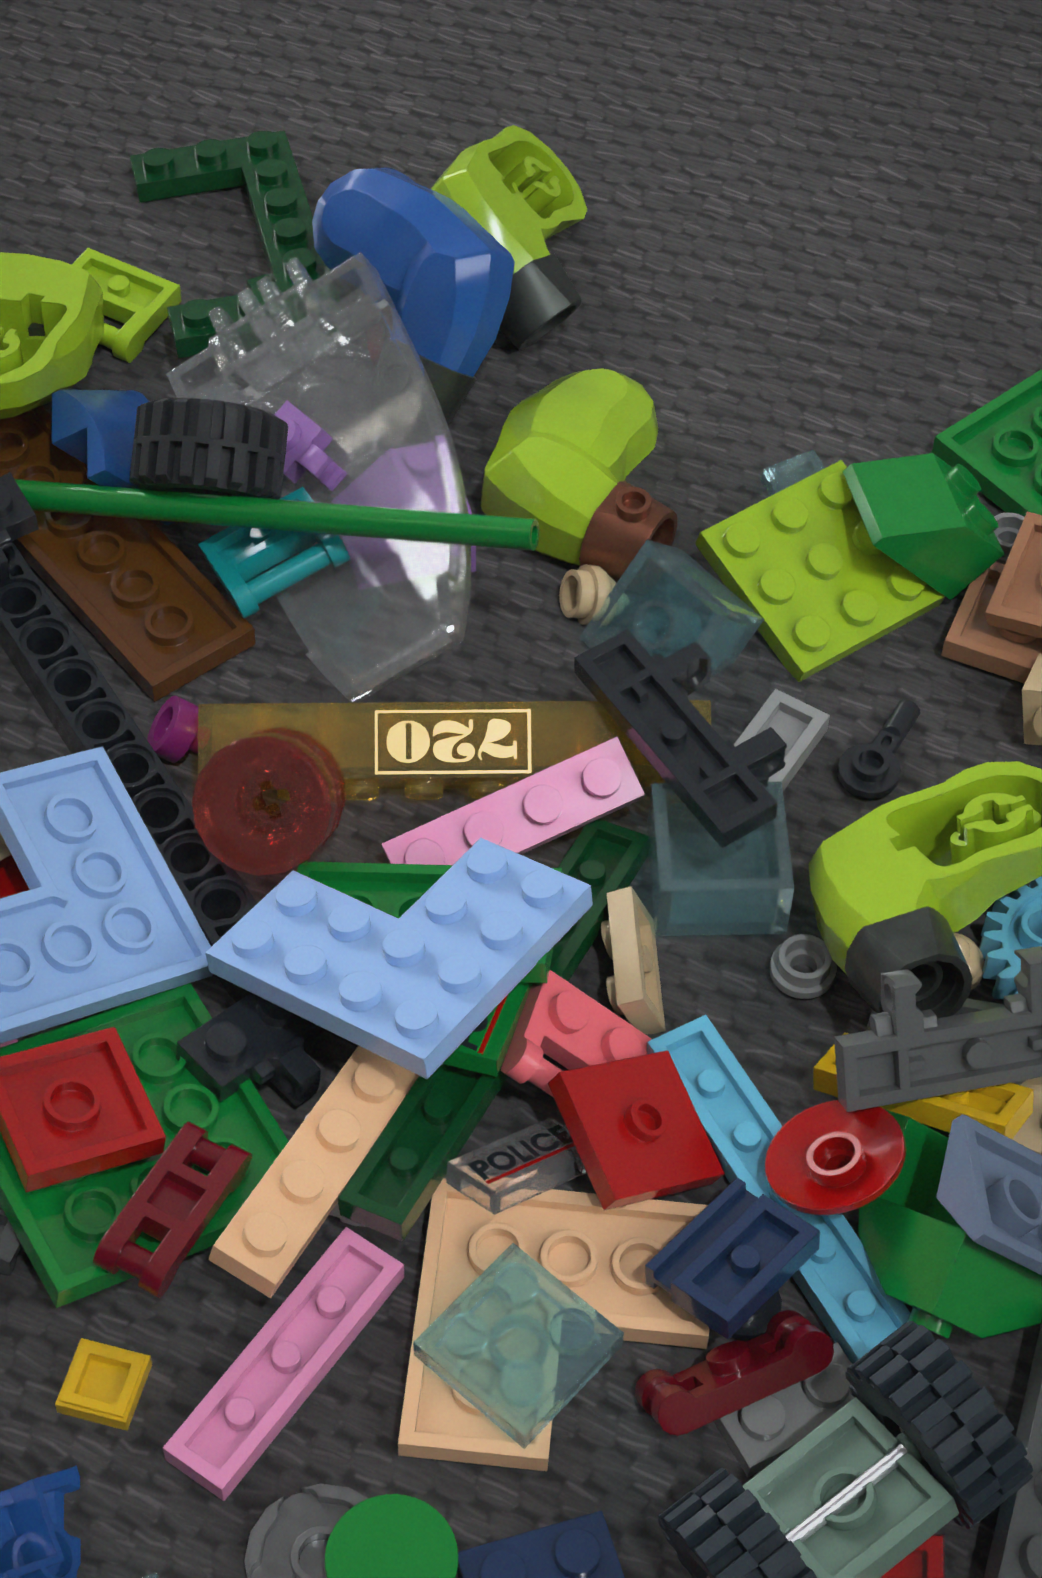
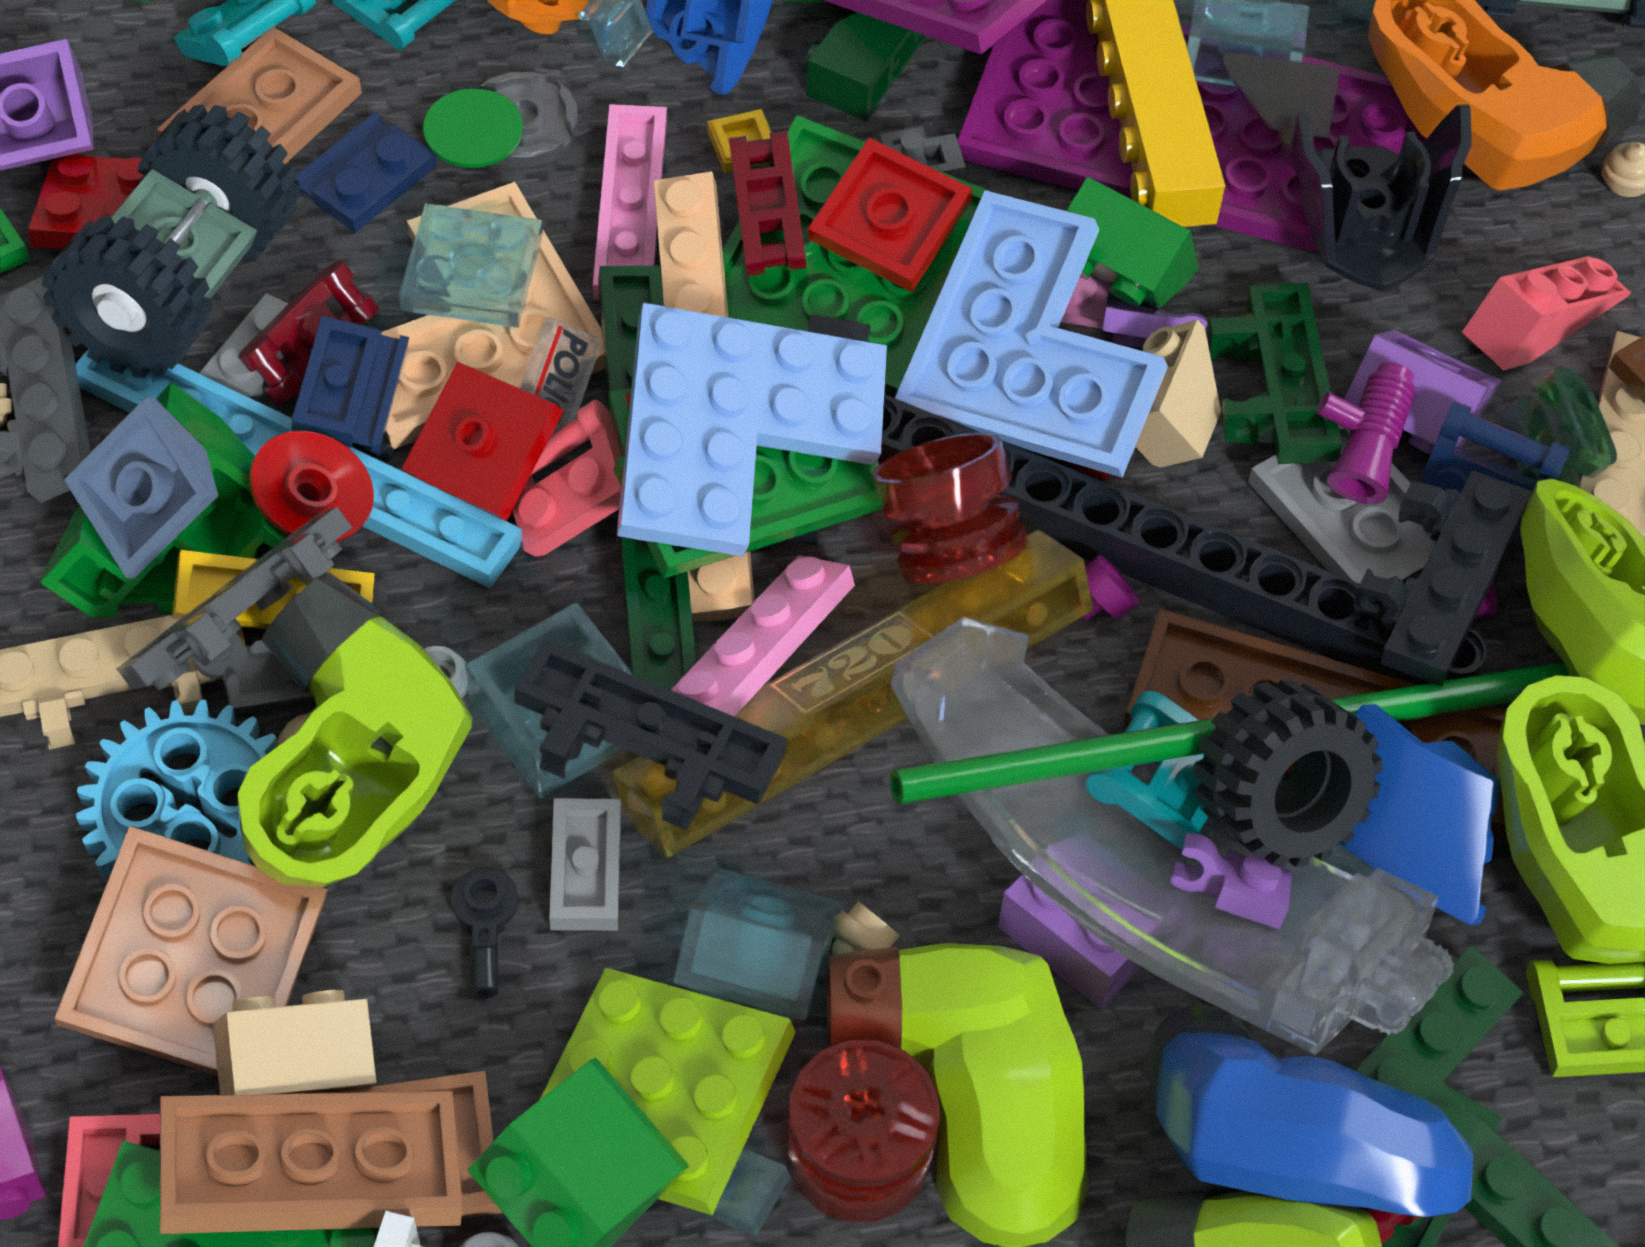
camera: 145 degrees right, 5 degrees up
(632, 947) = (565, 576): tan plate -> none
(697, 453) = (869, 1166): none -> clear red wheel

